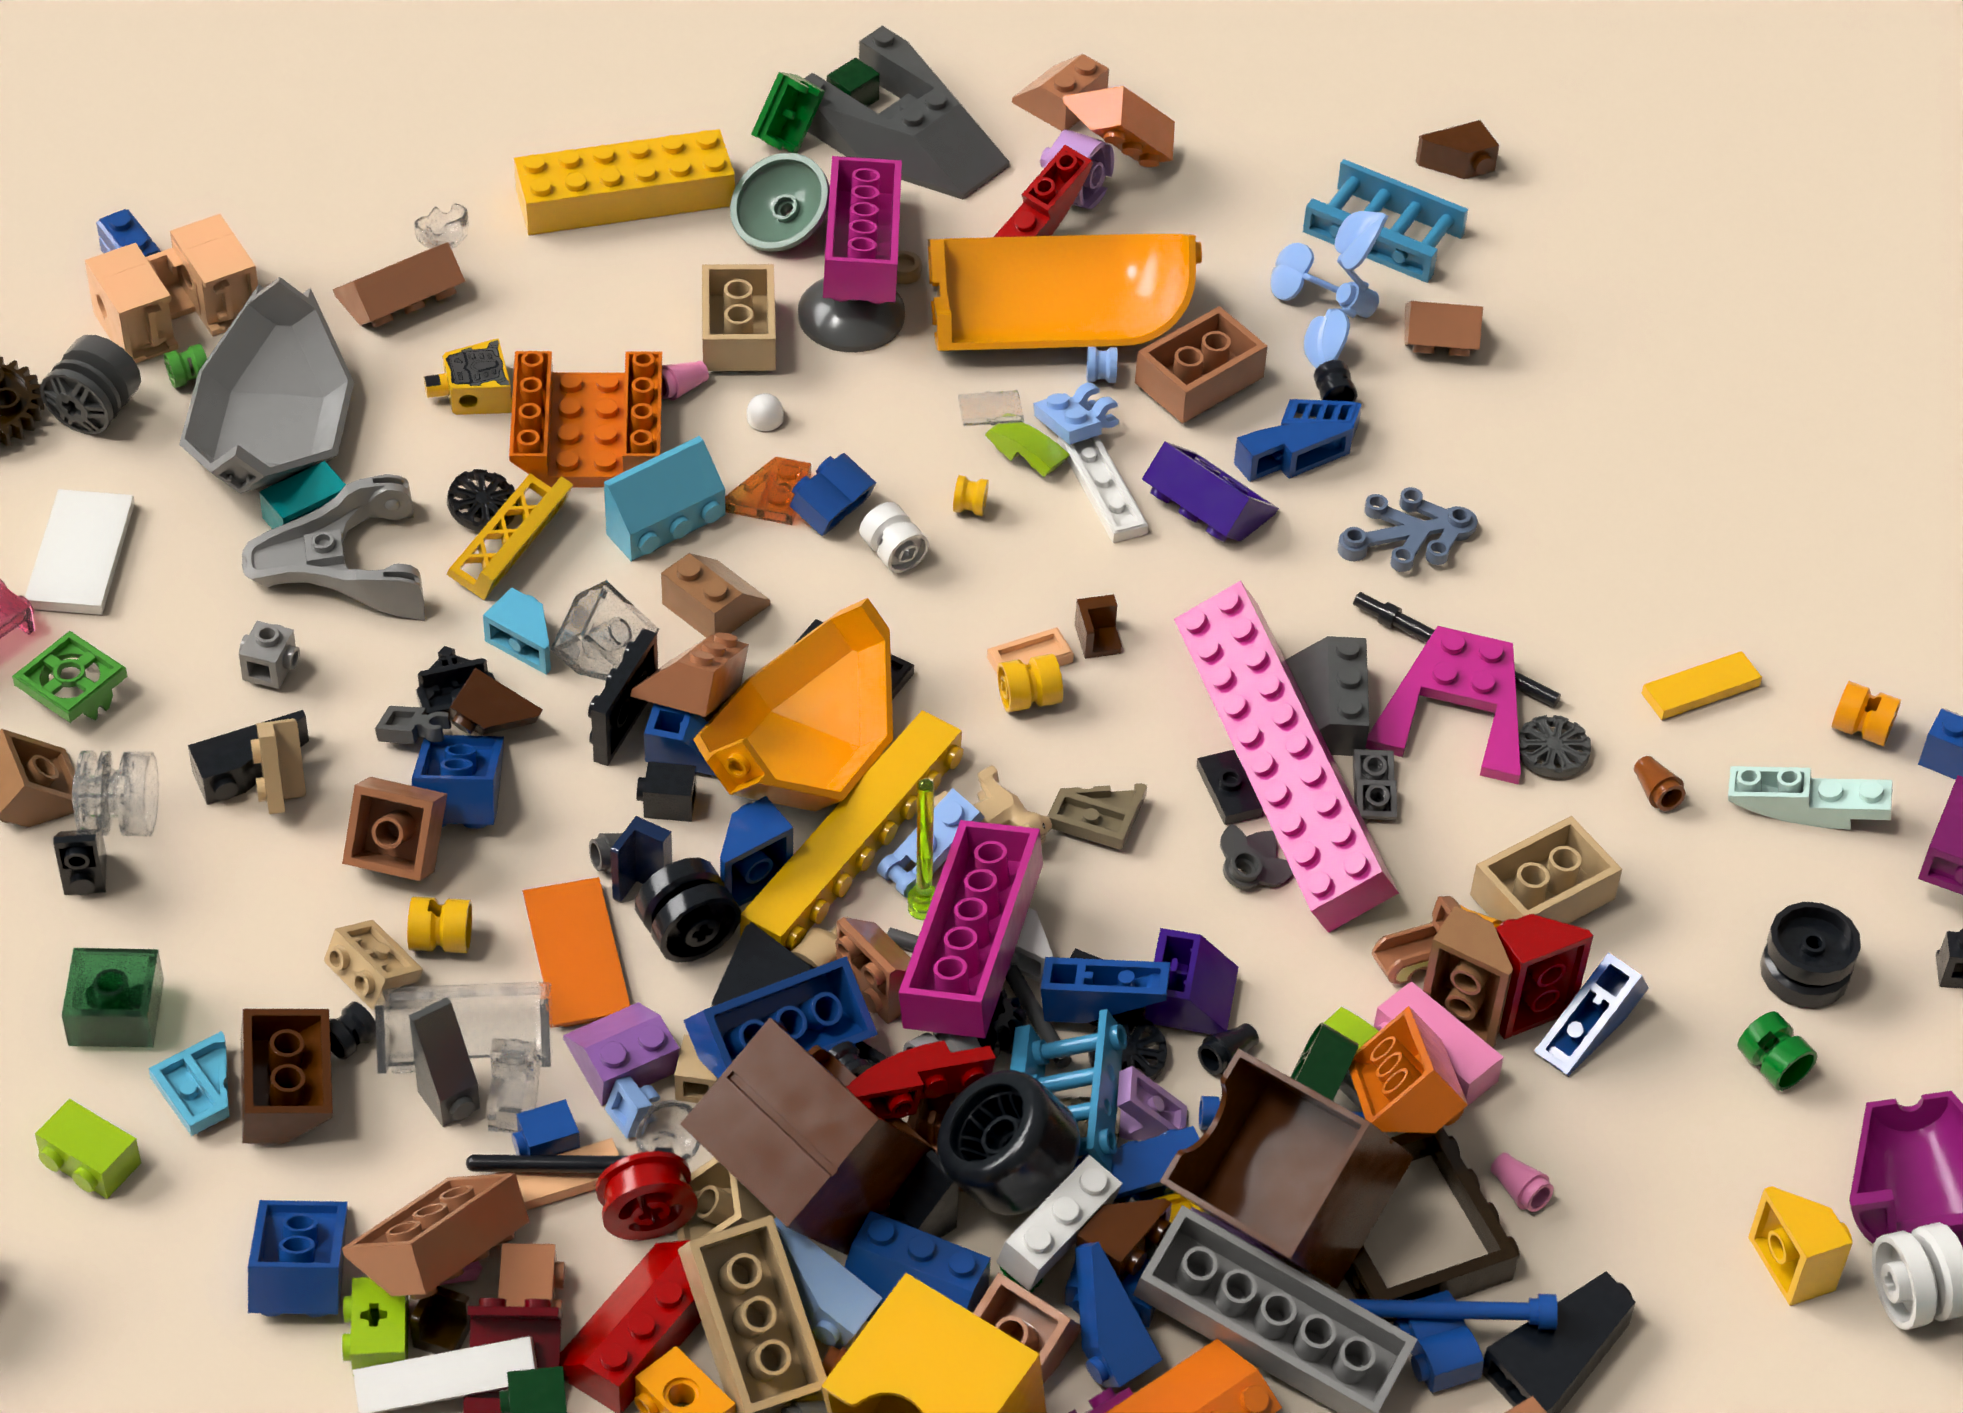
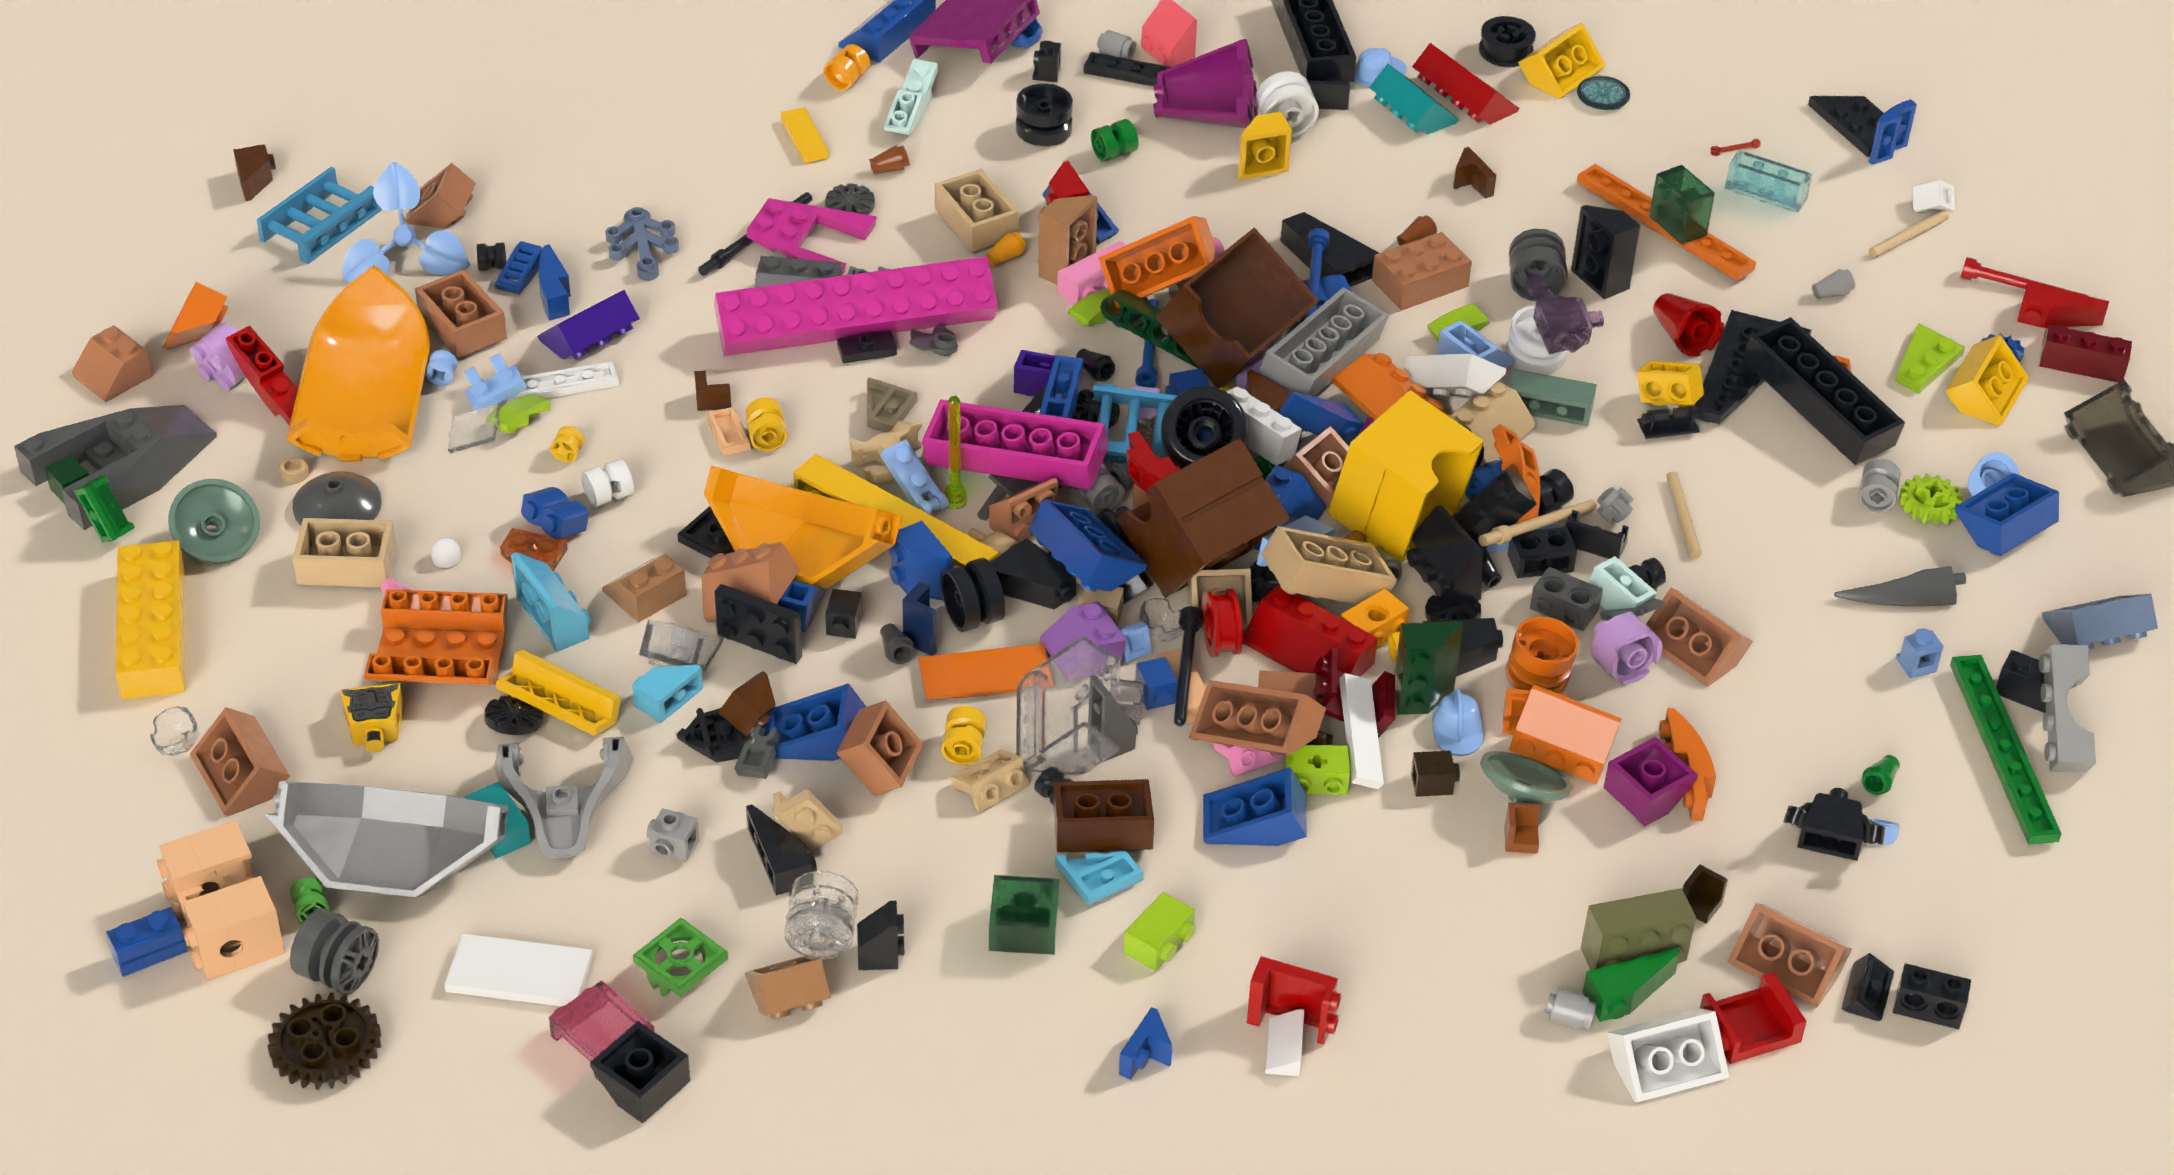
camera: 85 degrees left, 5 degrees down
(862, 230) = (281, 462): dark pink brick -> none
(1410, 949) = (1018, 267): nougat animal -> none

